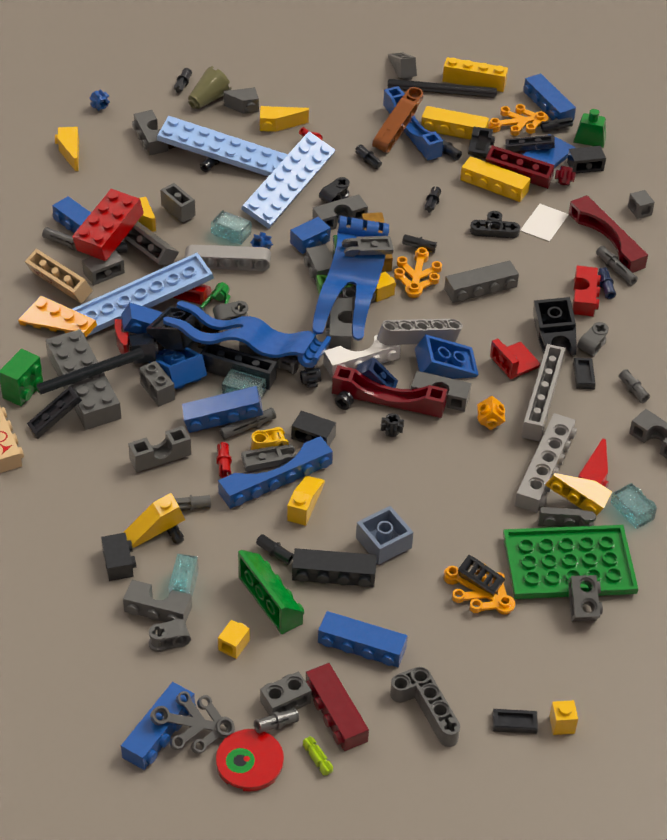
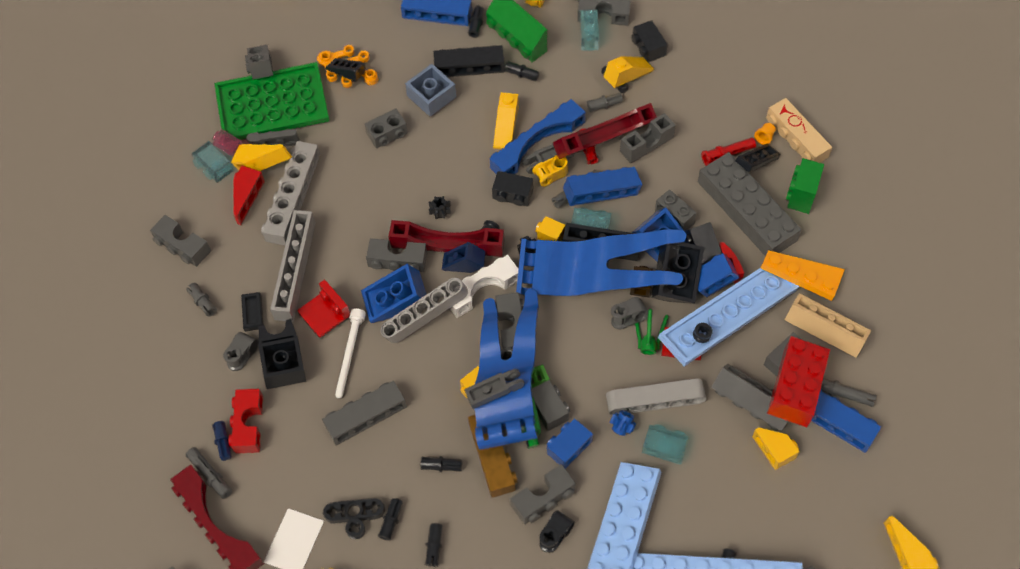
camera: 175 degrees right, 15 degrees up
(33, 442) = (765, 133): none -> light orange piece
(88, 431) = (736, 148): none -> red pin
(89, 371) = (738, 189): black axle -> none
(166, 467) = (604, 131): none -> dark red arch
(174, 265) = (701, 338): none -> black bush
(178, 202) = (738, 465): dark grey brick -> none
(284, 387) = (550, 230): none -> yellow brick
(316, 618) = (476, 21): none -> black axle
(414, 288) = (438, 415): light orange plant -> none
(439, 509) = (389, 125): none -> dark grey brick
(465, 218) = (390, 519): none -> black axle
(483, 350) = (357, 317): none -> white piece
(491, 413) = (345, 233): light orange brick -> none
(617, 513) = (226, 142): none -> clear pink brick

